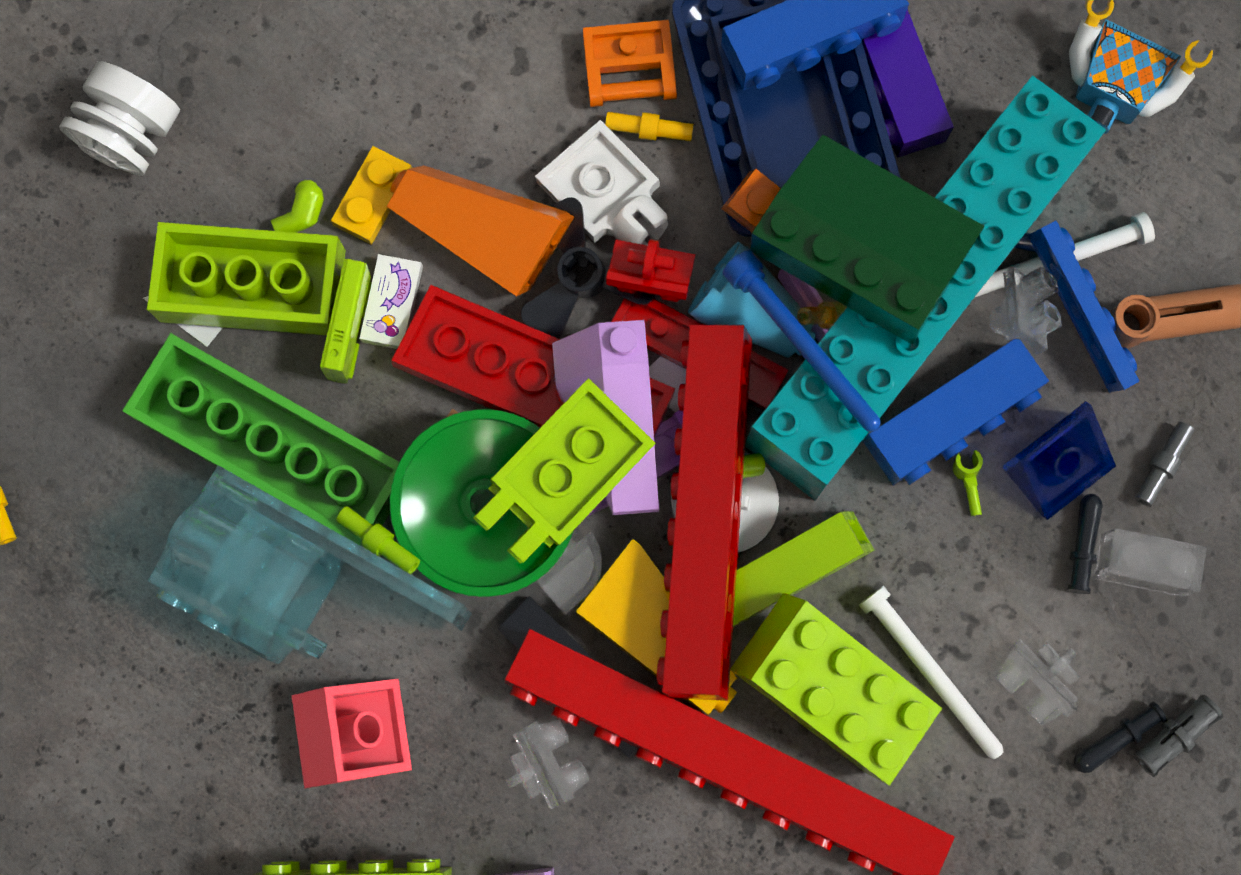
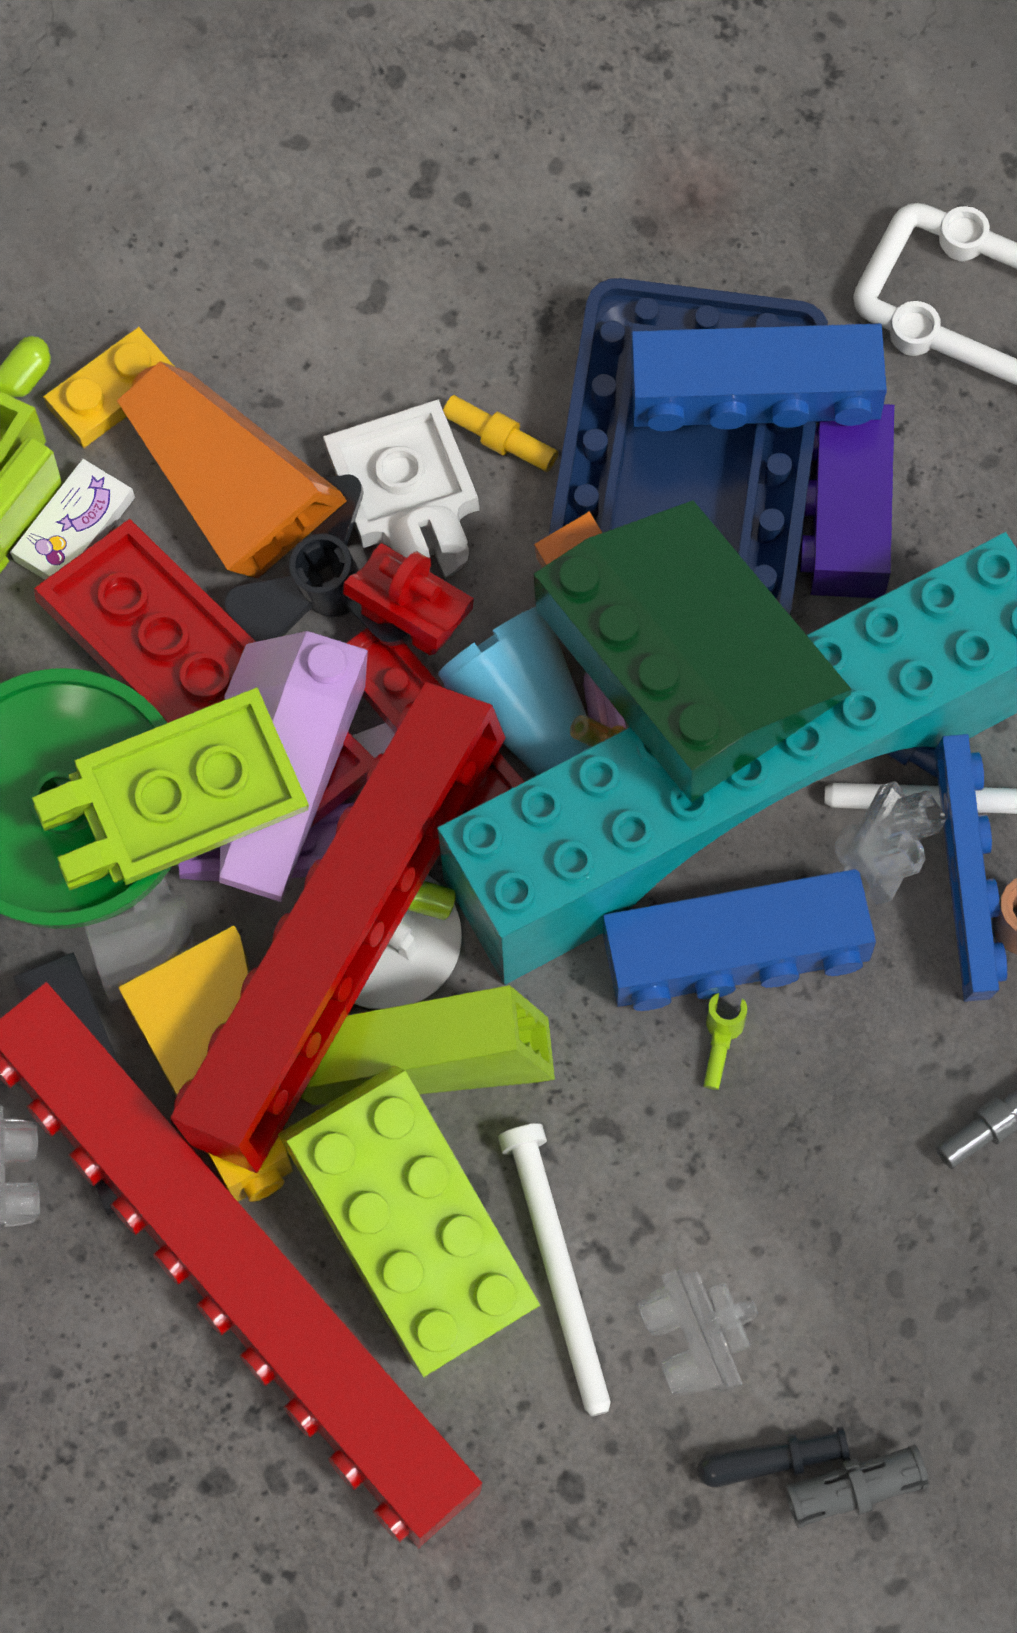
camera: 25 degrees right, 10 degrees down
(629, 49) = (514, 329): orange plate -> none
(746, 274) = (519, 637): blue piece -> none
(1062, 462) = (853, 1056): clear blue slope -> none
(1083, 556) = (849, 1169): black piece -> none
(1150, 562) = (914, 1236): clear brick -> none

